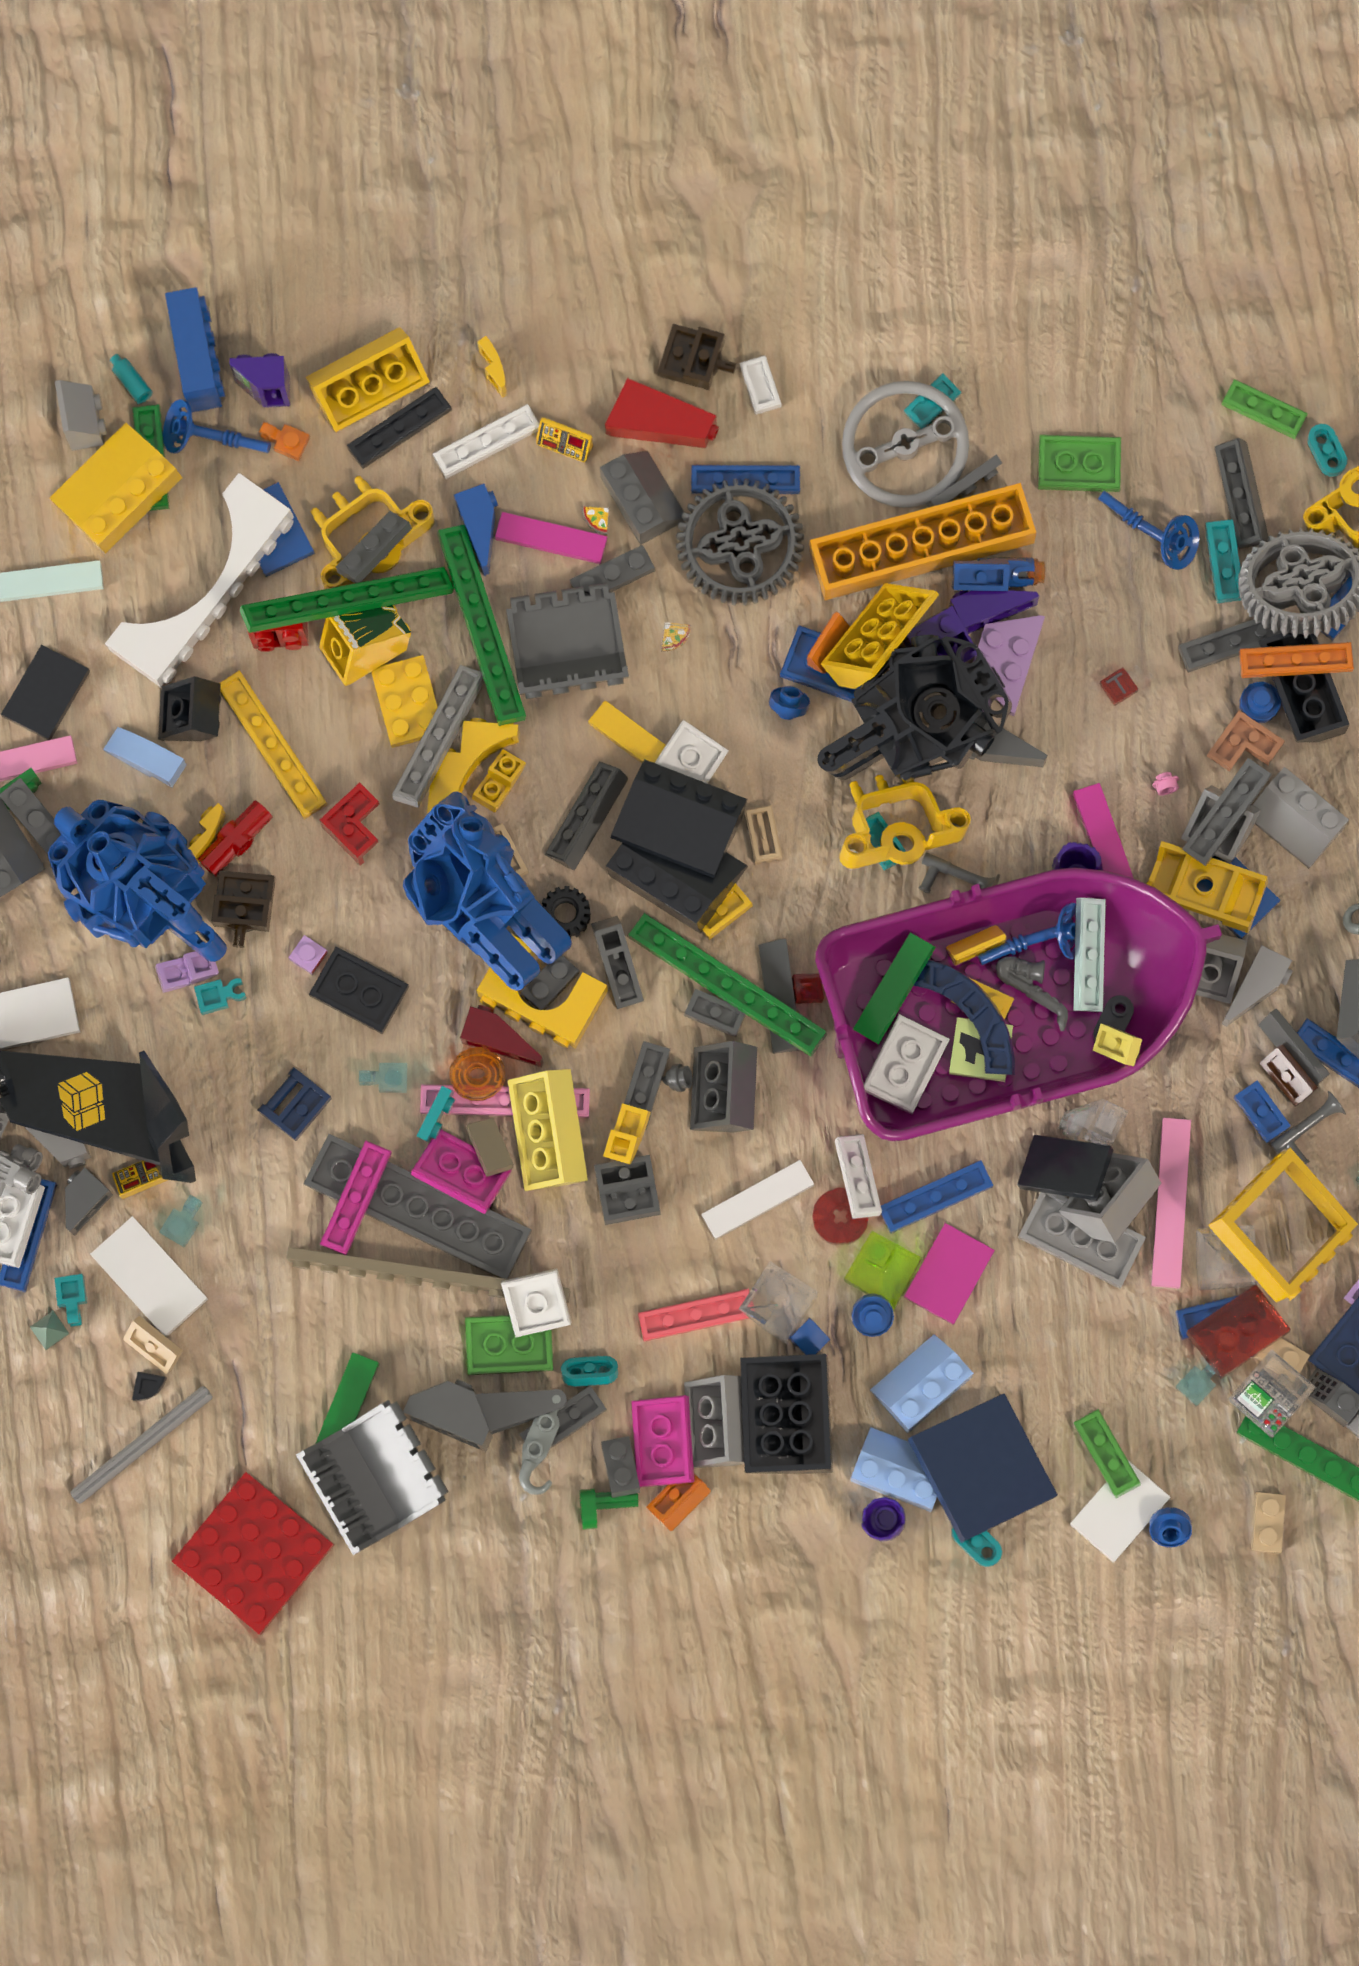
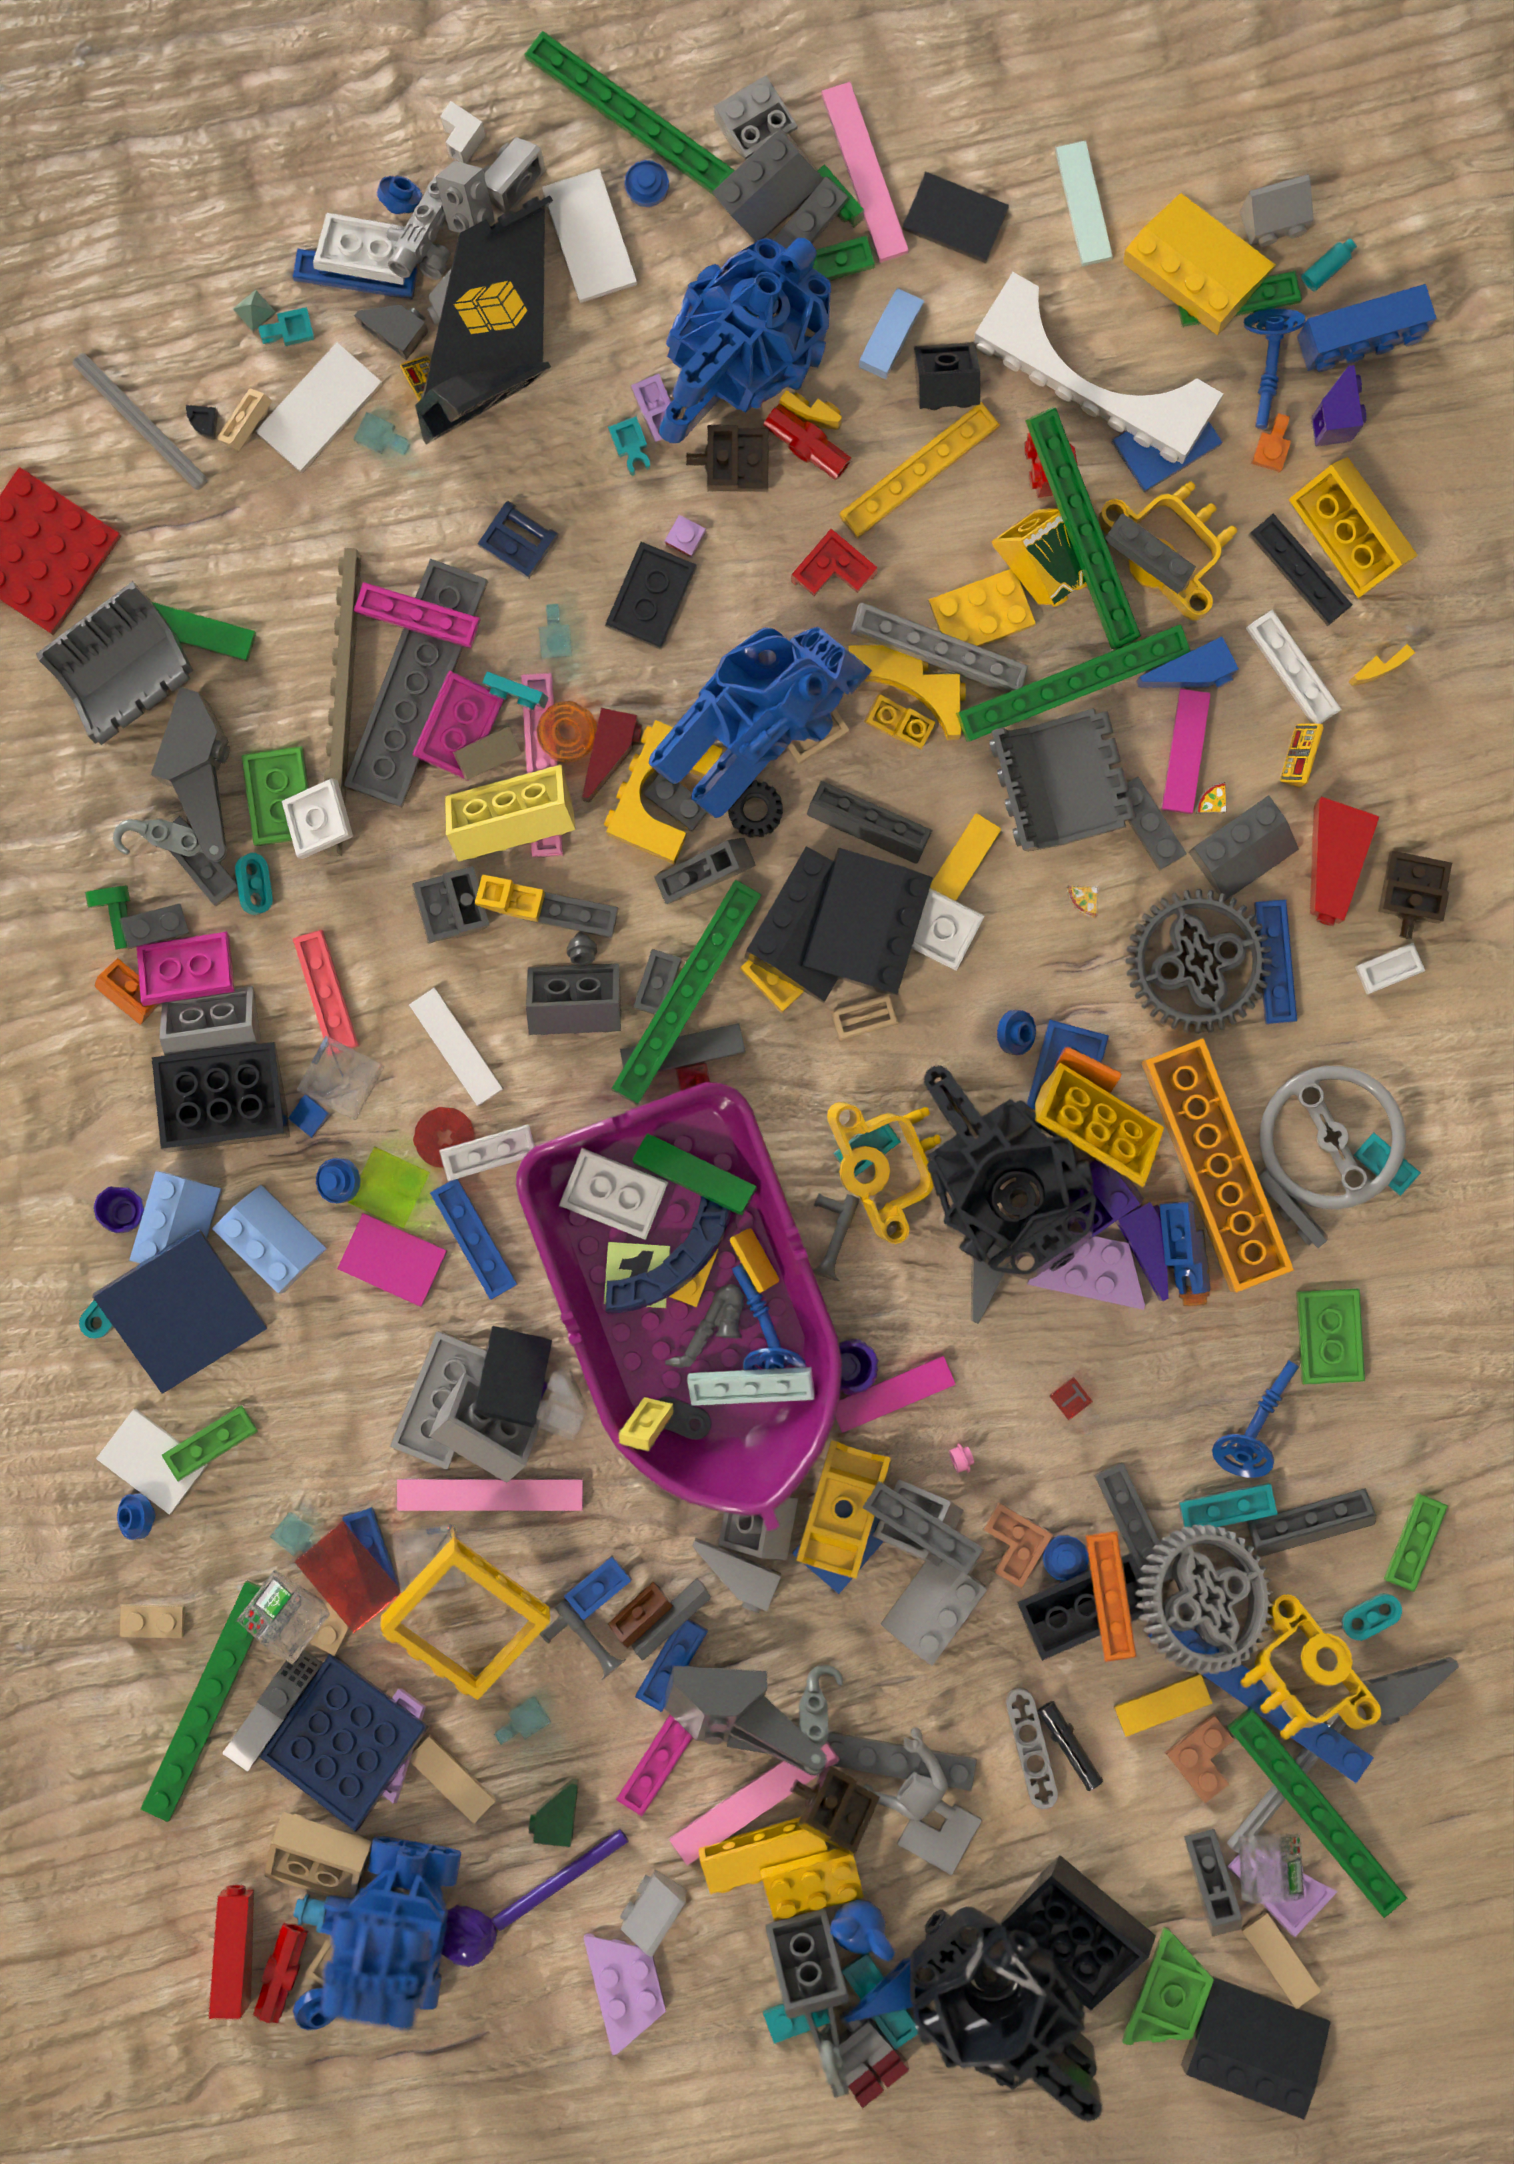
camera: 85 degrees right, 10 degrees up
(71, 788) = (844, 258): none -> green plate

